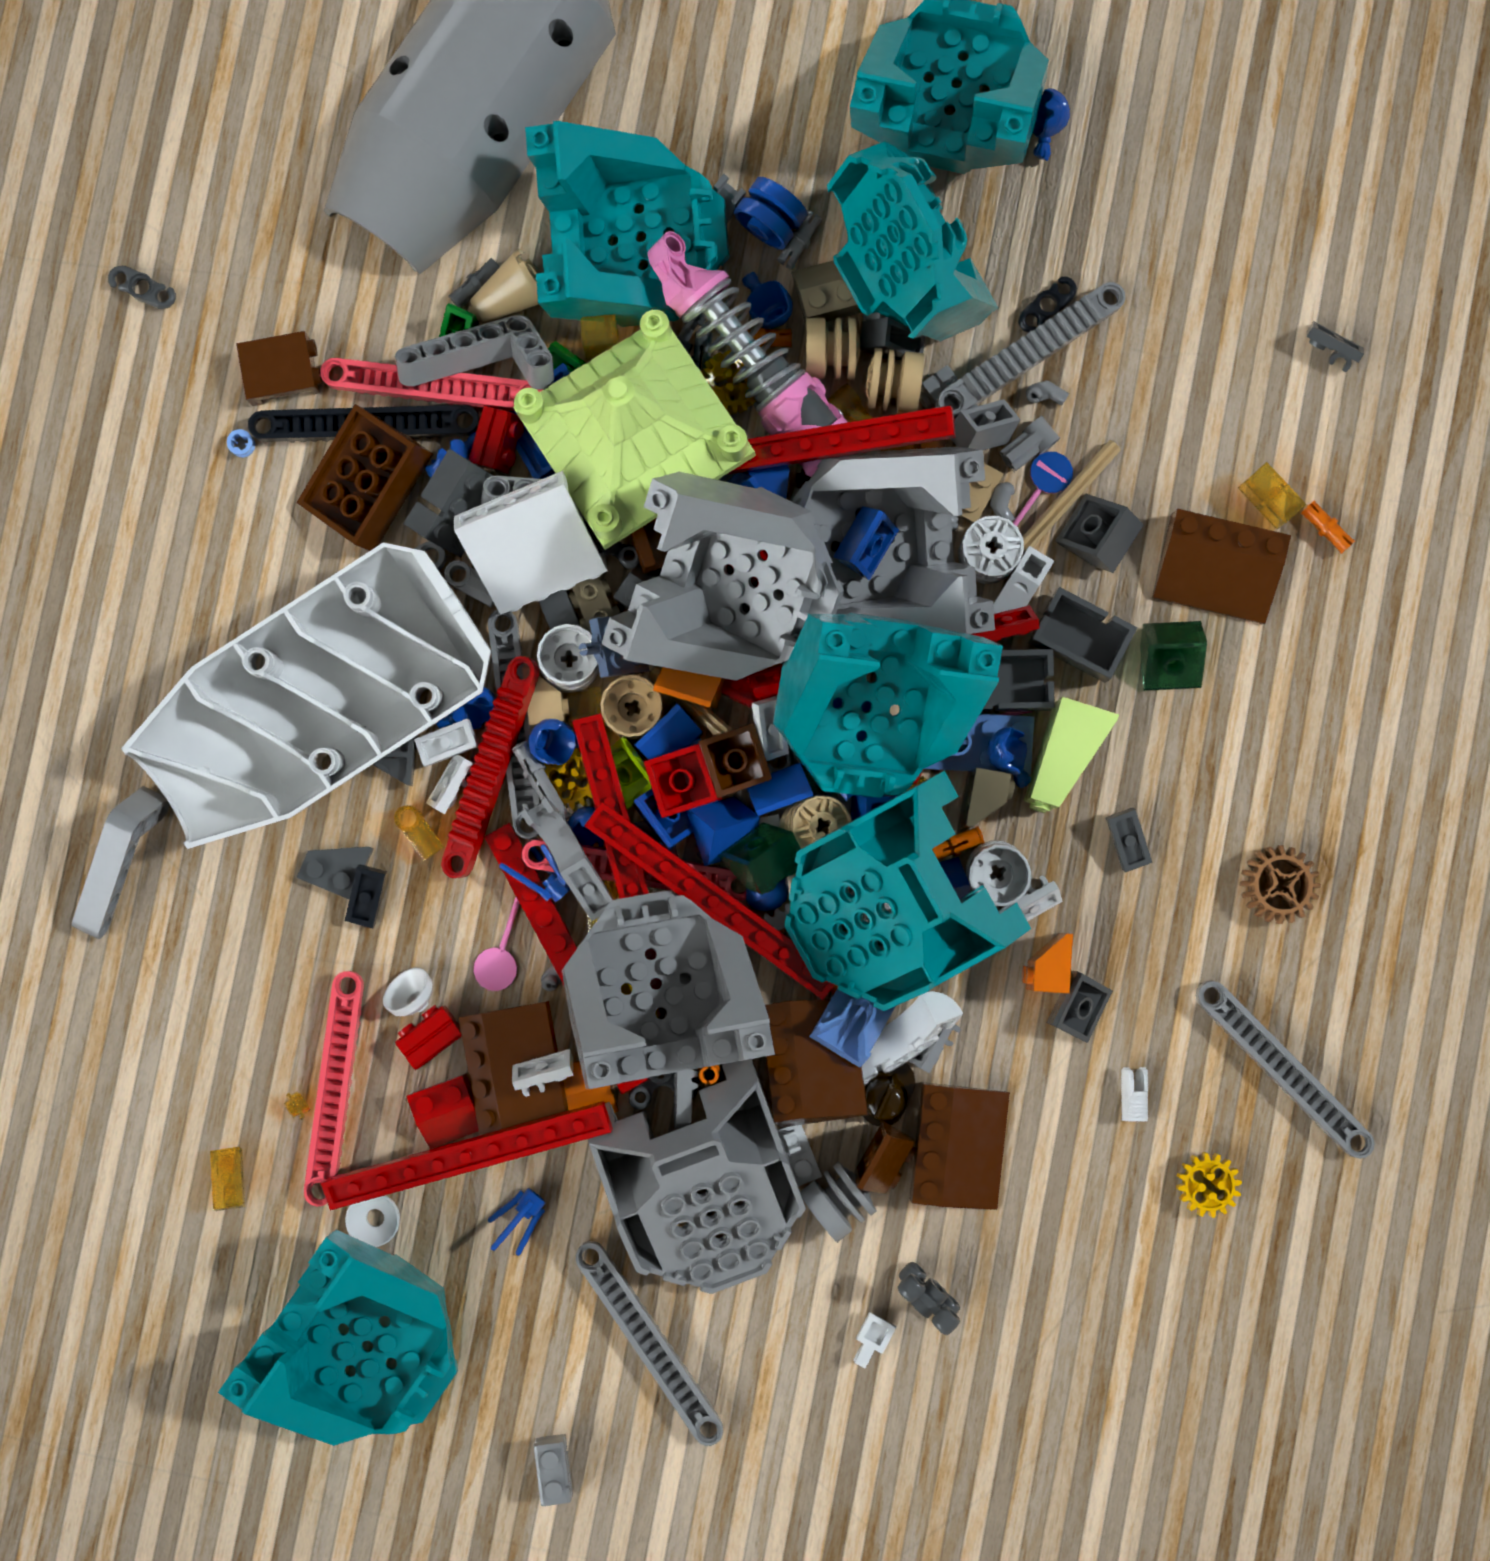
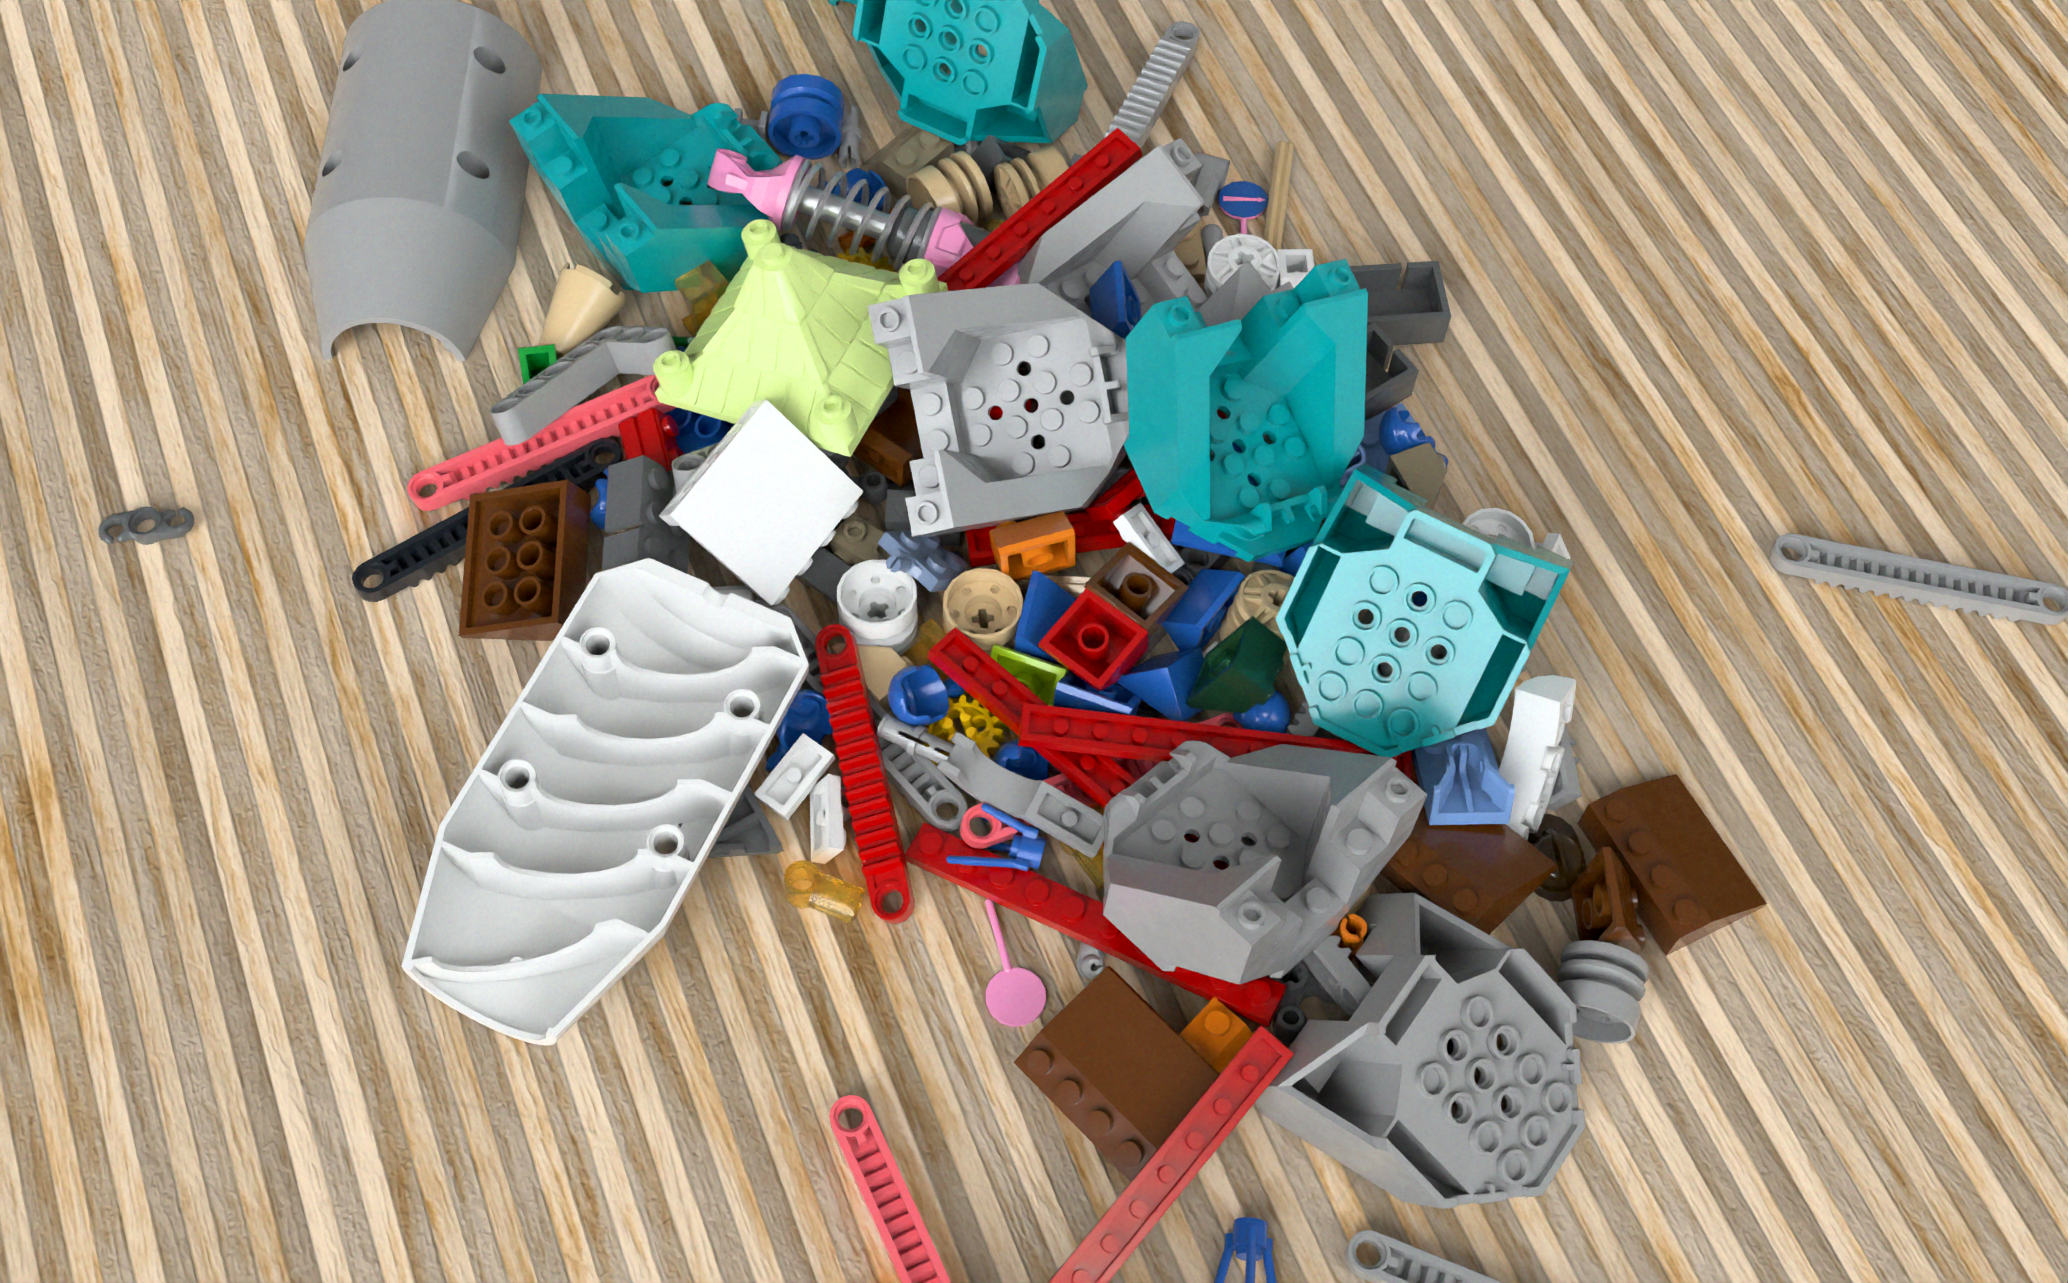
camera: 35 degrees left, 25 degrees down
(113, 858) = (461, 1150): light grey beam -> none
(231, 440) = (356, 605): light blue bush -> none
(278, 366) = (355, 513): reddish brown panel -> none
(334, 868) = (748, 998): dark grey wing -> none
(366, 896) = (807, 999): black plate -> none
(408, 992) = (933, 1076): white piece -> none
(429, 1037) = (991, 1116): red brick -> none
(444, 1111) = (1068, 1188): red slope -> none
(474, 282) = (532, 331): dark grey pin -> none
(542, 1070) = (1169, 1028): white plate -> none
(875, 1336) = (1757, 1127): white plate -> none
(929, 1298) = (1784, 1031): dark grey gear -> none
(1046, 390) = (1189, 134): light grey arm -> none
(1051, 966) = (1618, 612): orange slope -> none
(1060, 300) = (1137, 62): black piece -> none
(1066, 749) = (1460, 407): yellowish green slope -> none
(1081, 1008) = (1670, 642): dark grey slope -> none
(1100, 532) = (1332, 216): dark grey slope -> none
(1129, 839) = (1587, 458): dark grey plate -> none
(1134, 1102) = (1802, 695): white hinge -> none
(1172, 655) = (1488, 280): clear green slope -> none
(1220, 566) = (1465, 185): reddish brown slope -> none
(1225, 1182) = (1966, 751): yellow gear -> none
(1272, 495) = (1463, 106): clear yellow panel -> none
(1272, 875) = (1753, 399): medium nougat gear -> none
(1327, 527) = (1534, 107): orange pin -> none

